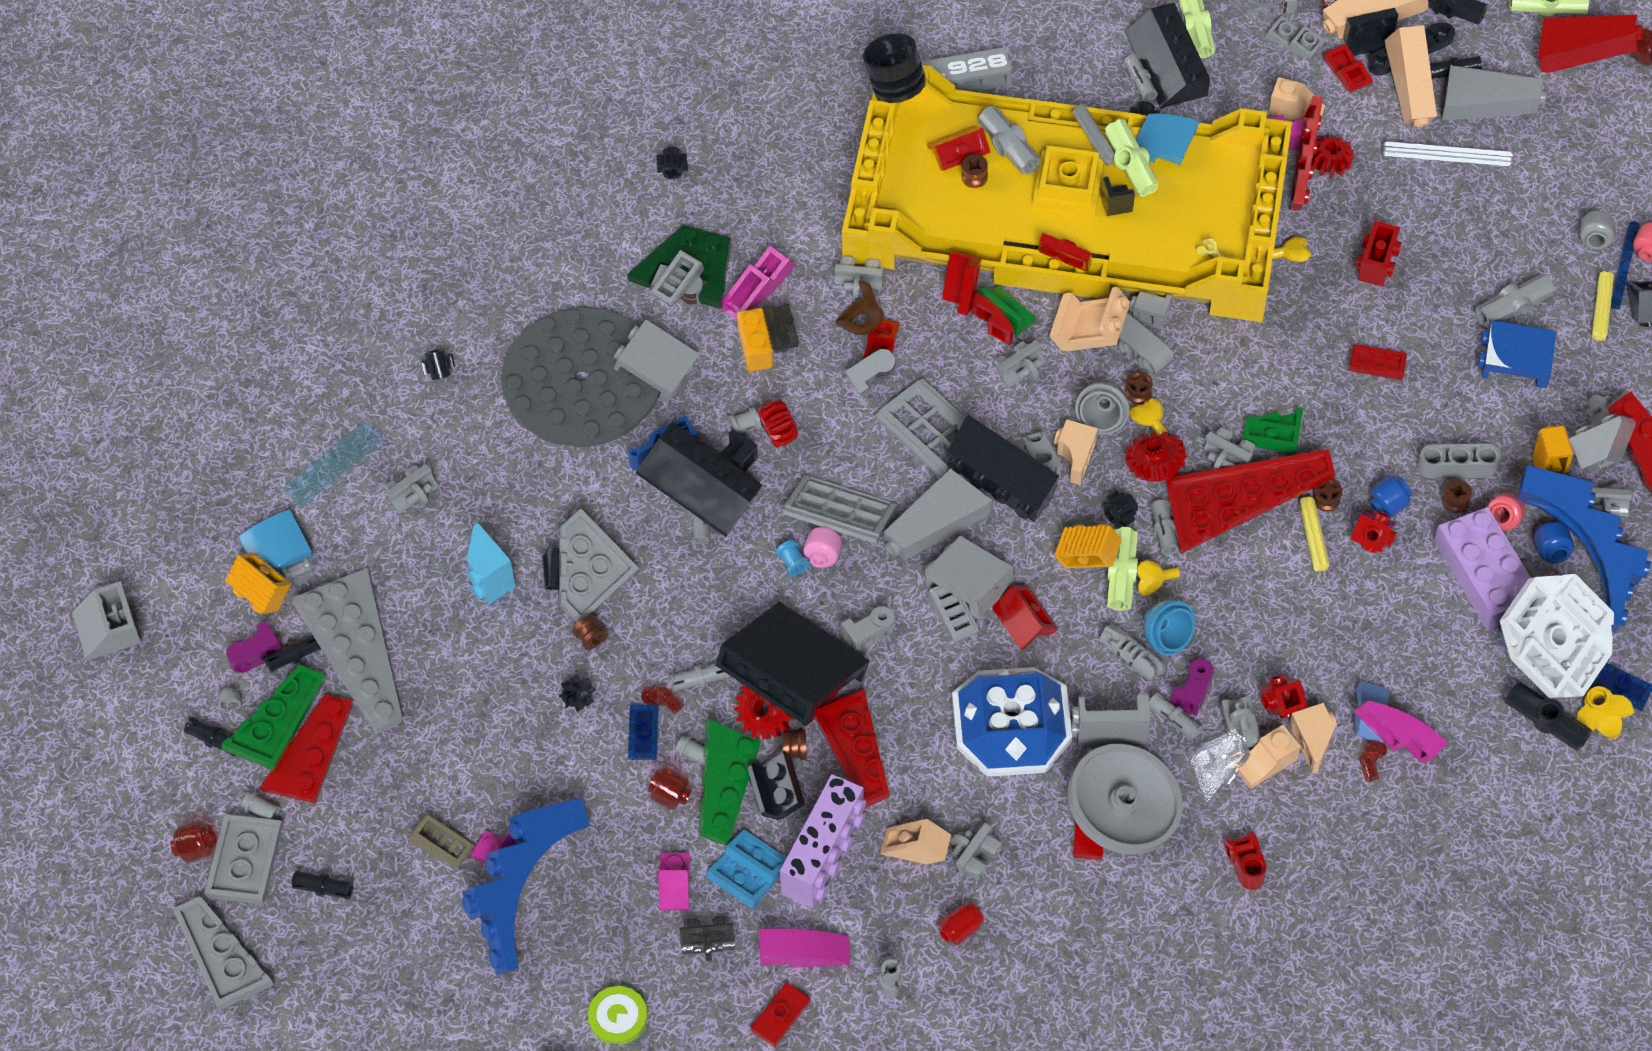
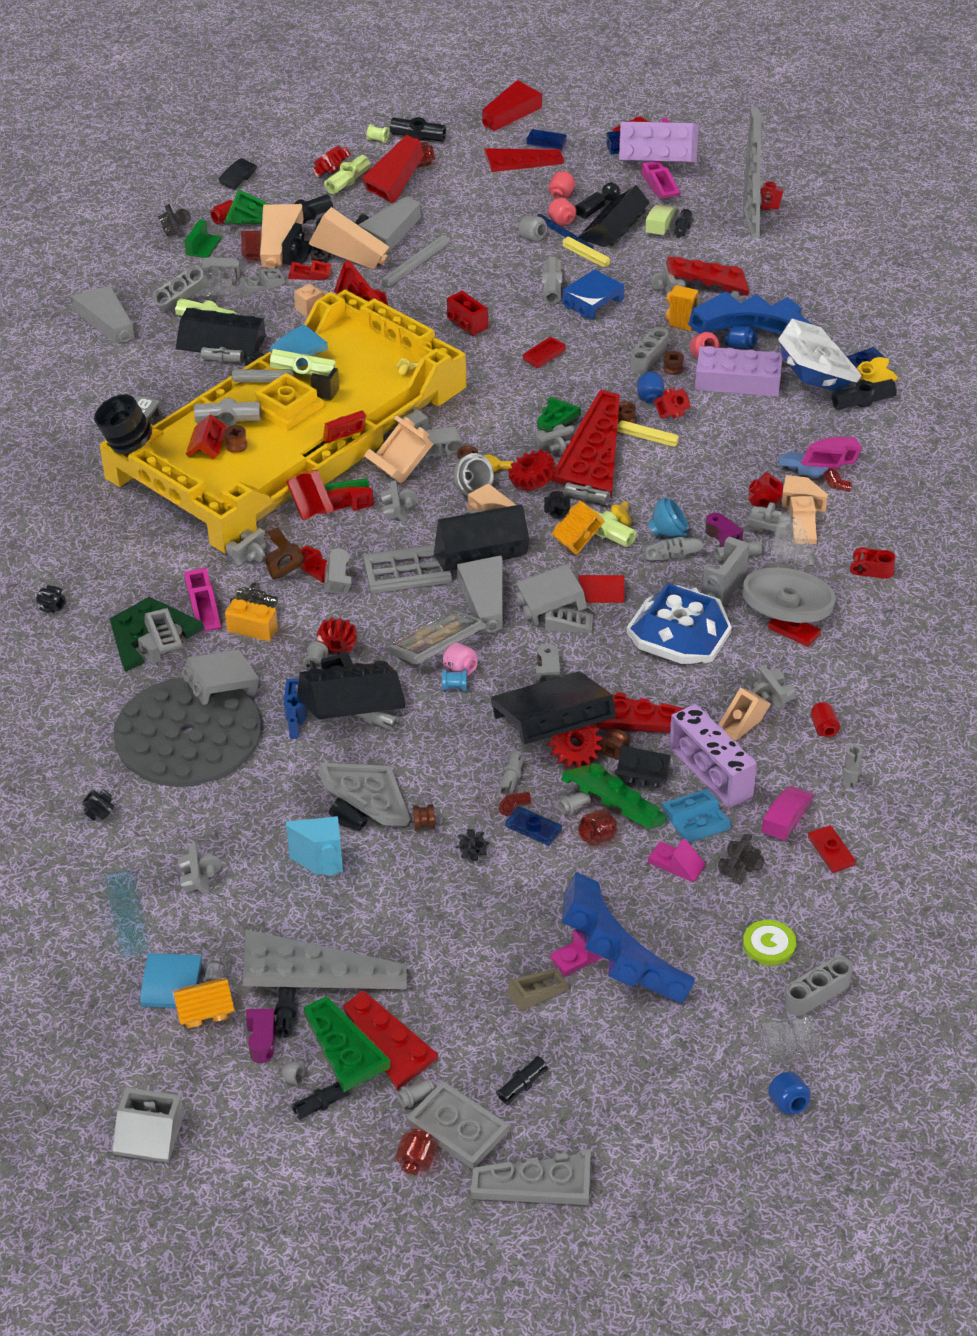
camera: 60 degrees left, 15 degrees down
(1603, 444) = (698, 276): light grey slope -> none

